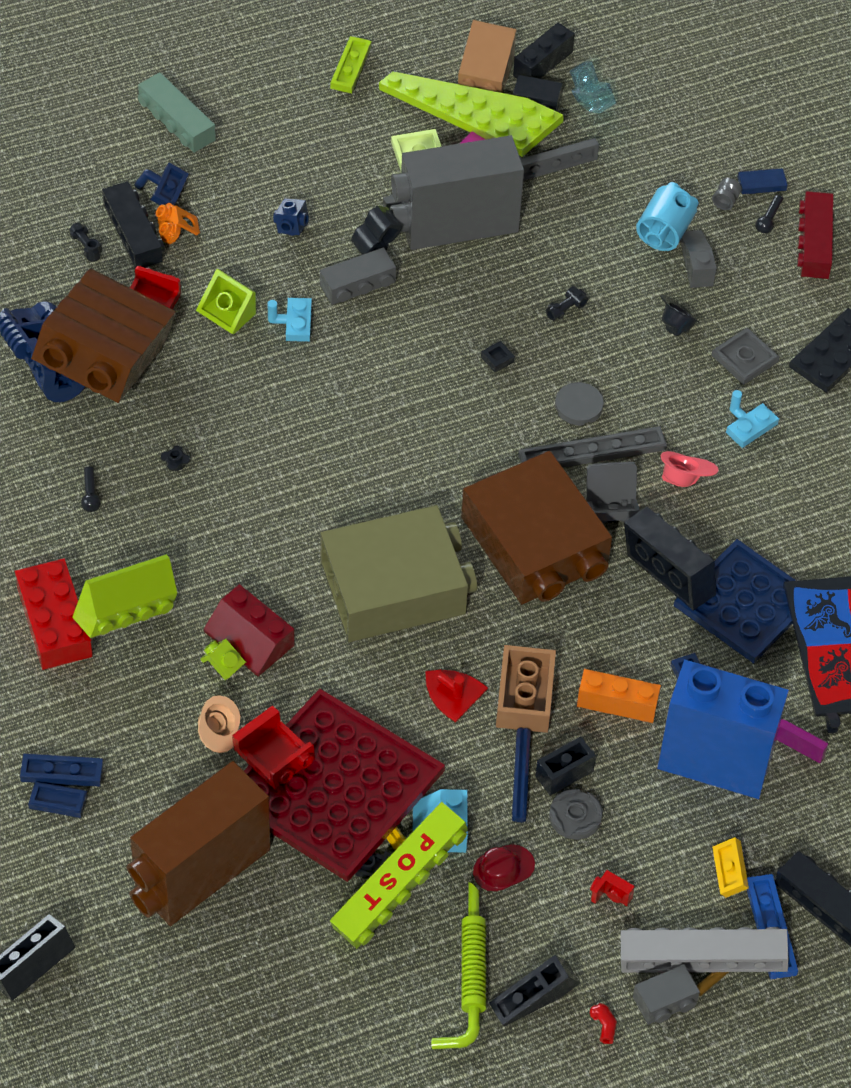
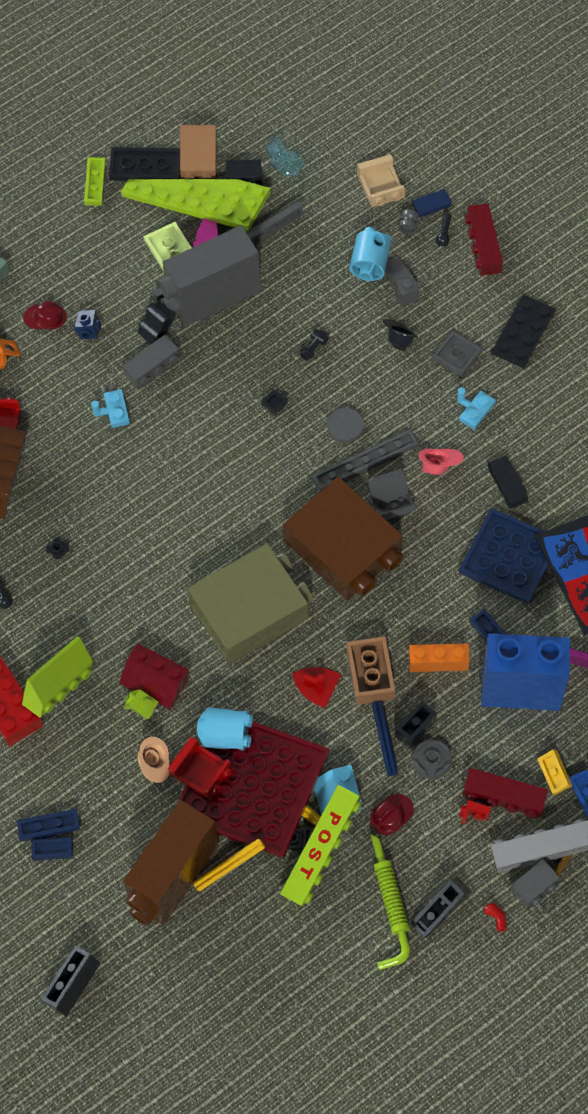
camera: 10 degrees left, 10 degrees up
(227, 302) = (59, 409): lime slope -> none
(243, 197) = (45, 316): none -> dark red piece
(275, 871) = (228, 865): none -> yellow axle
(319, 706) = (224, 728): none -> medium azure cylinder
(416, 58) = (144, 163): none -> black plate
(544, 52) = (239, 135): black brick -> none
(658, 876) = (505, 793): none -> dark red brick
(670, 558) = (448, 539): black brick -> none
(704, 141) = (380, 181): none -> tan panel
(767, 515) = (507, 482): none -> black beam

